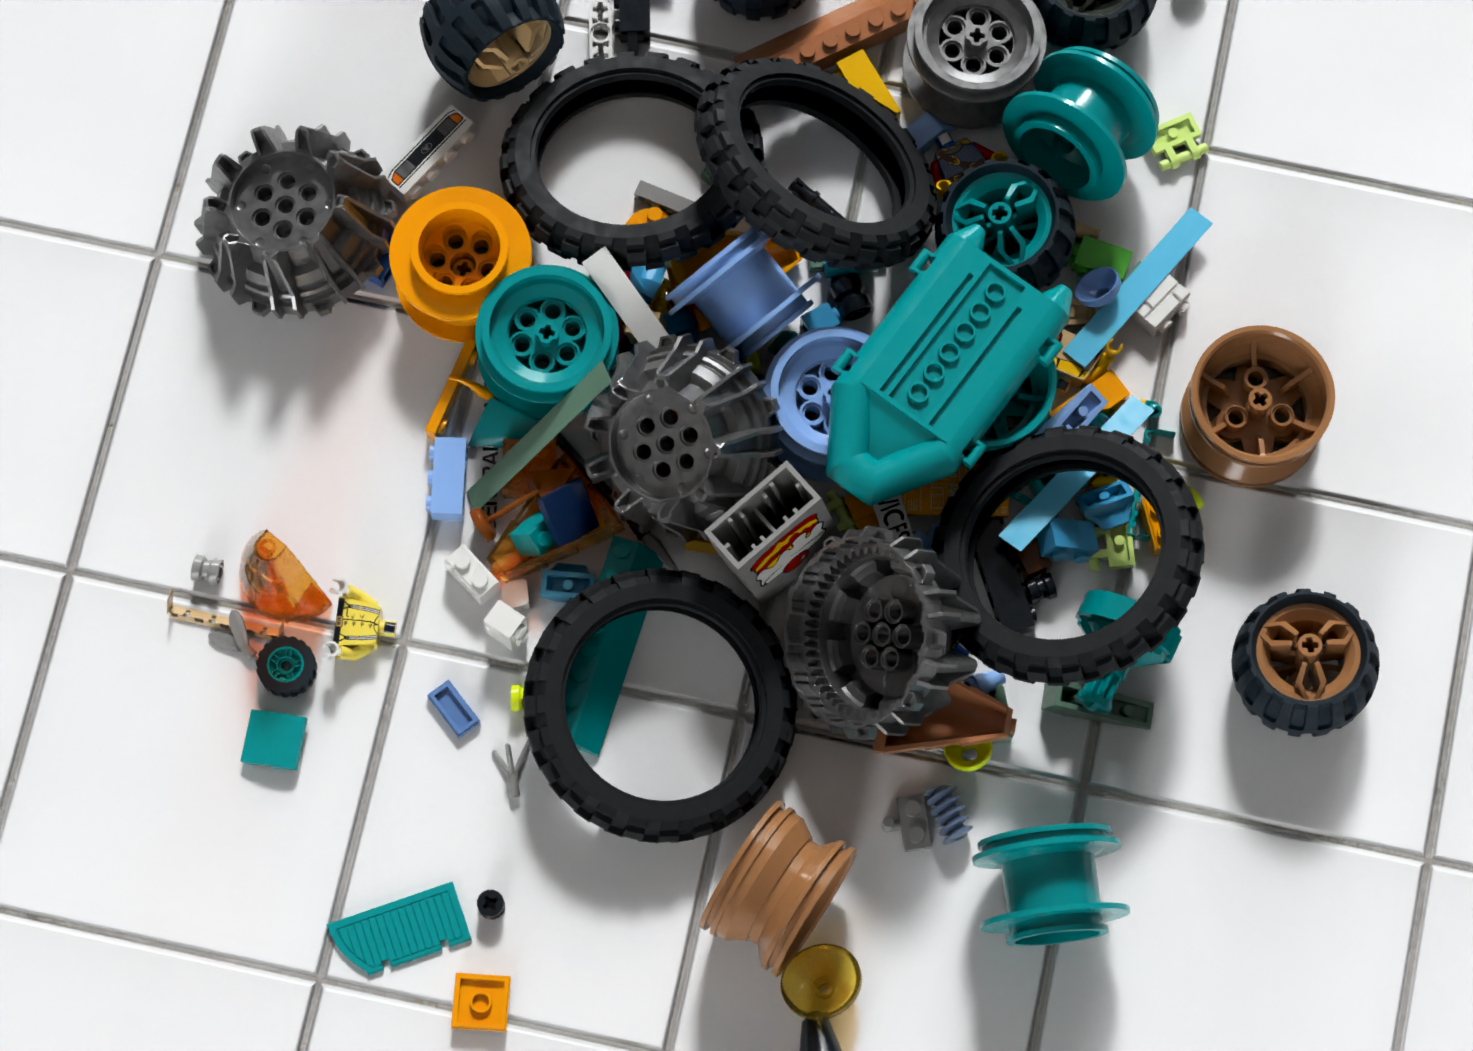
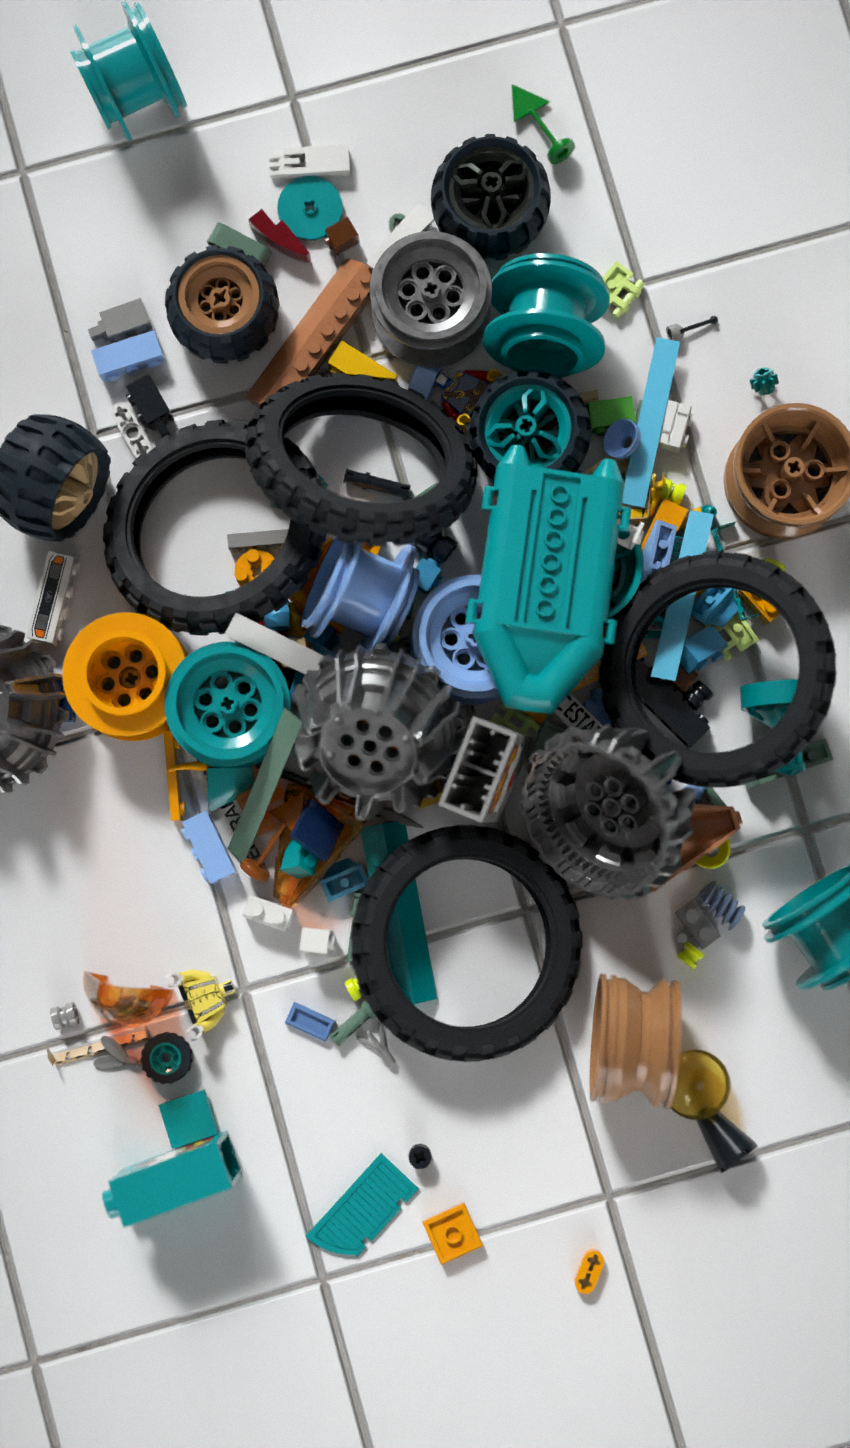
camera: 25 degrees left, 10 degrees up
(226, 780) = (172, 1180): none -> teal brick
(497, 733) = (352, 1024): none -> sand green pin
(516, 594) = (308, 909): white slope -> none
(887, 848) = (690, 955): none -> neon yellow wheel
(1052, 380) = (635, 536): none -> white bracket
(1125, 370) = (677, 493): none -> neon yellow wheel
(1216, 215) = (676, 331): none -> hinge
(1281, 307) = (764, 381): none -> teal gear

